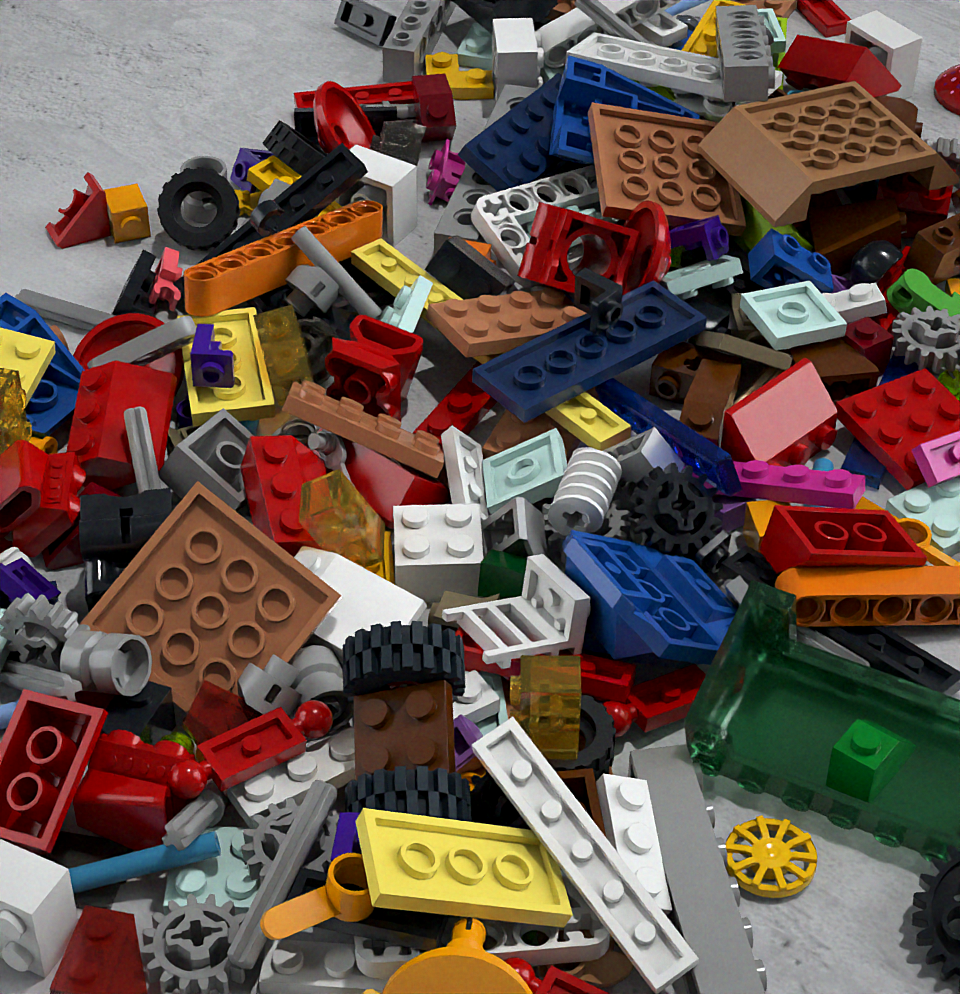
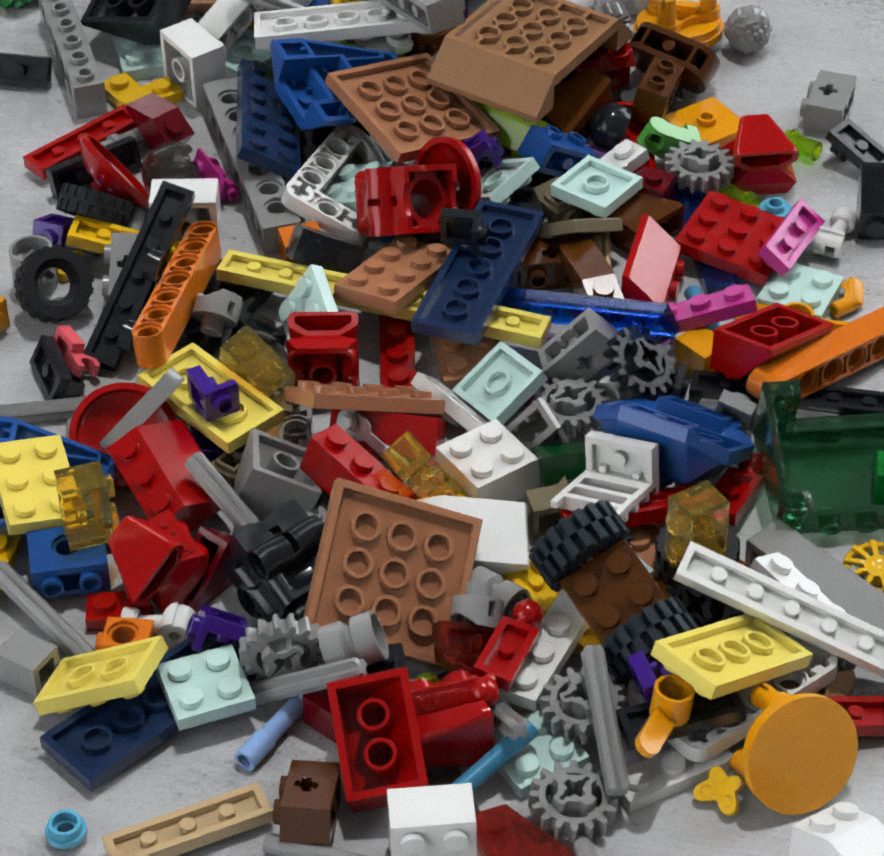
camera: 30 degrees left, 0 degrees up
(347, 285) = (217, 282): light grey piece -> none
(585, 491) = (570, 376): white piece -> none

